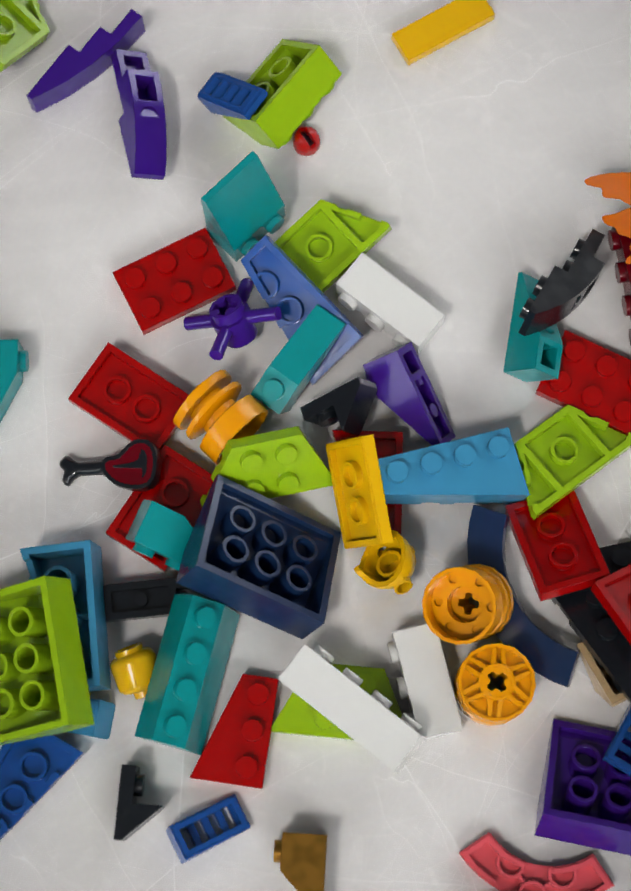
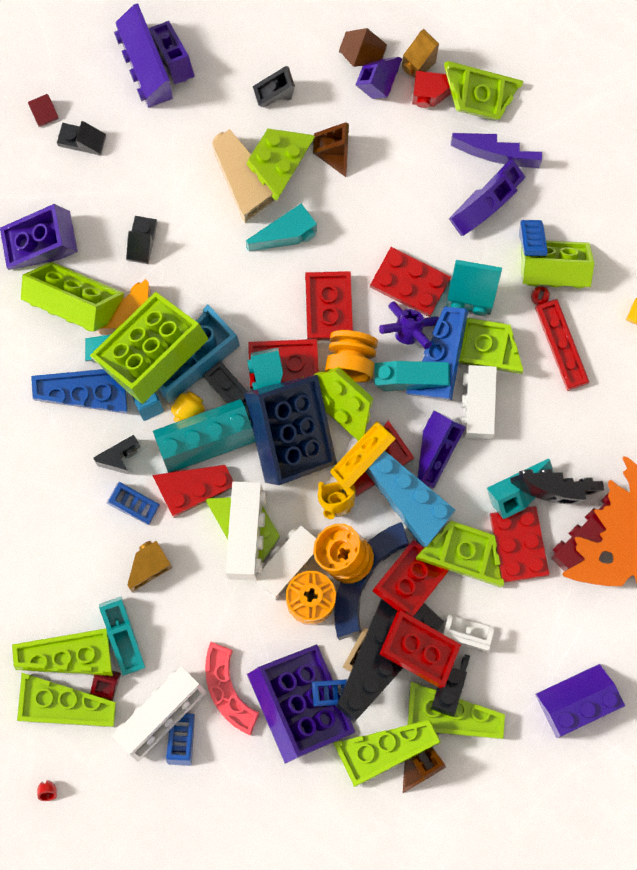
camera: 50 degrees right, 0 degrees up
(132, 469) = (291, 331): black piece -> none
(345, 404) = (404, 416): black slope -> none
(385, 159) = (562, 345): none -> red tile

